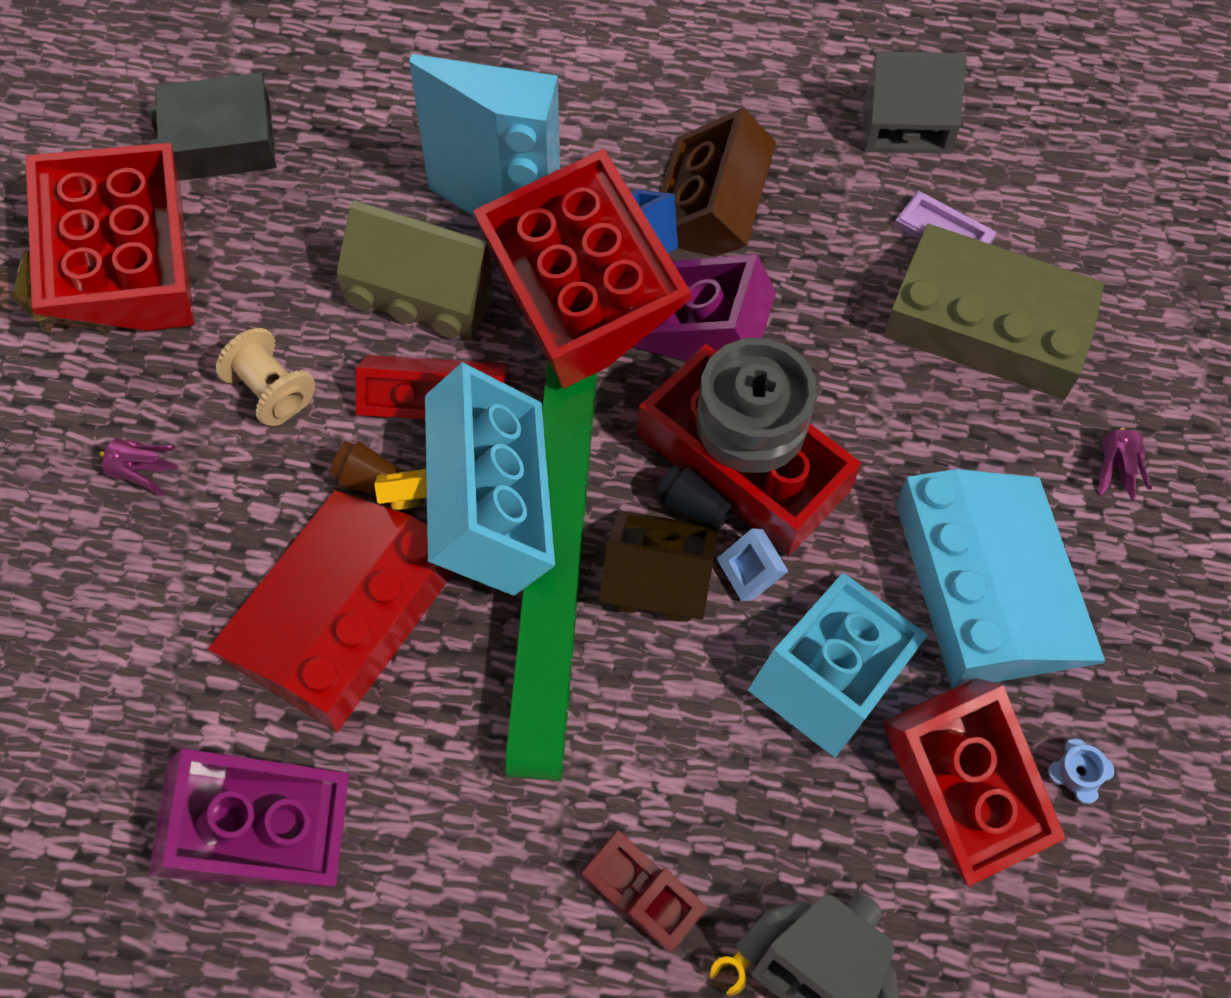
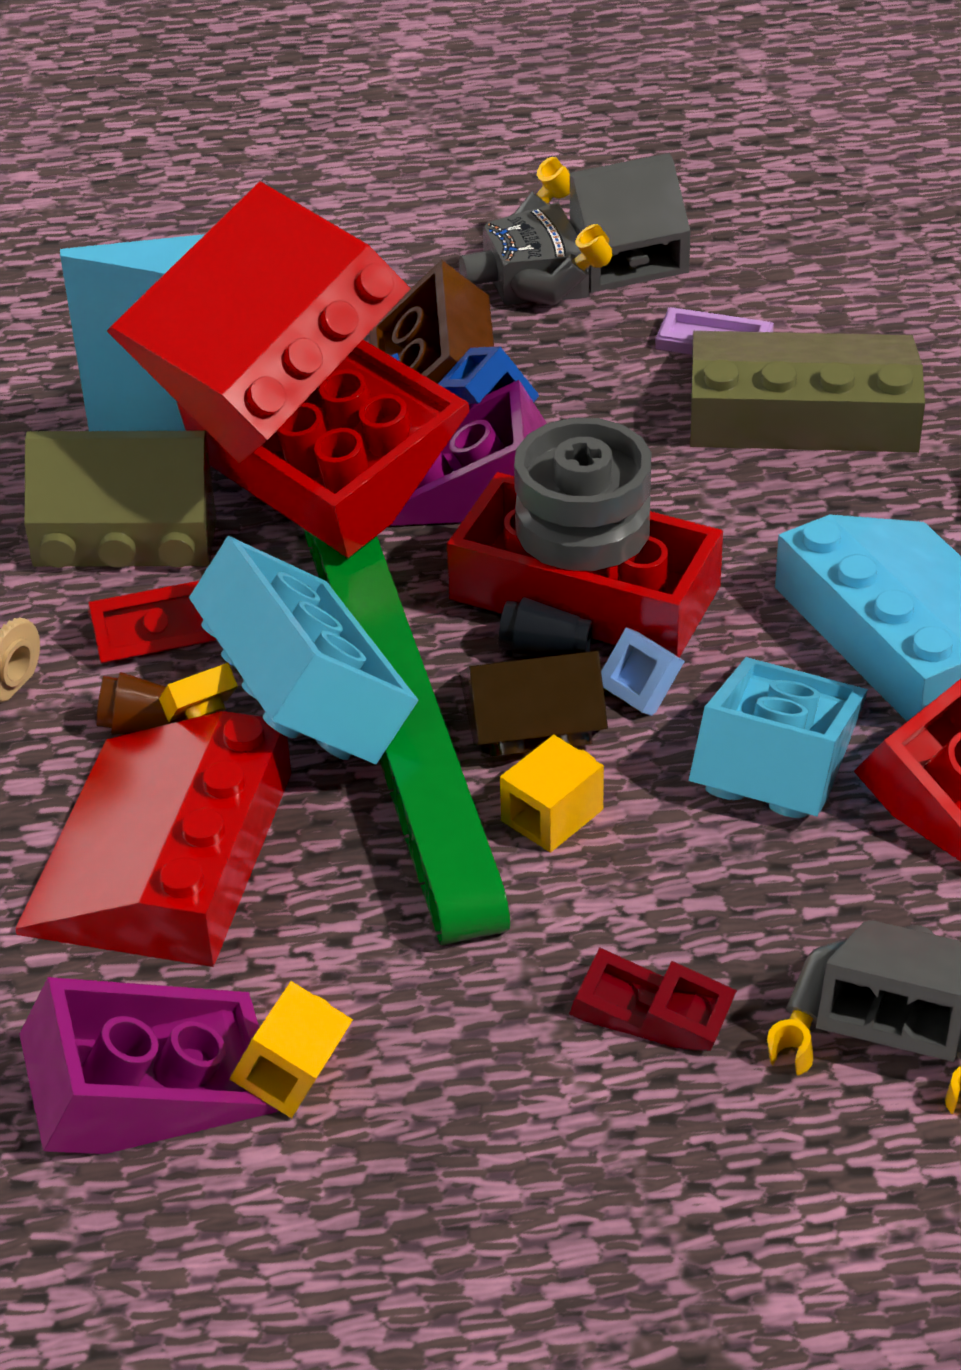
camera: 15 degrees left, 20 degrees down
(353, 851) = (290, 1049): none -> yellow brick
(544, 169) = (257, 316): none -> red slope
(640, 664) = (552, 793): none -> yellow brick
(730, 237) = (483, 372): none -> blue panel
(831, 102) = (536, 249): none -> dark grey torso

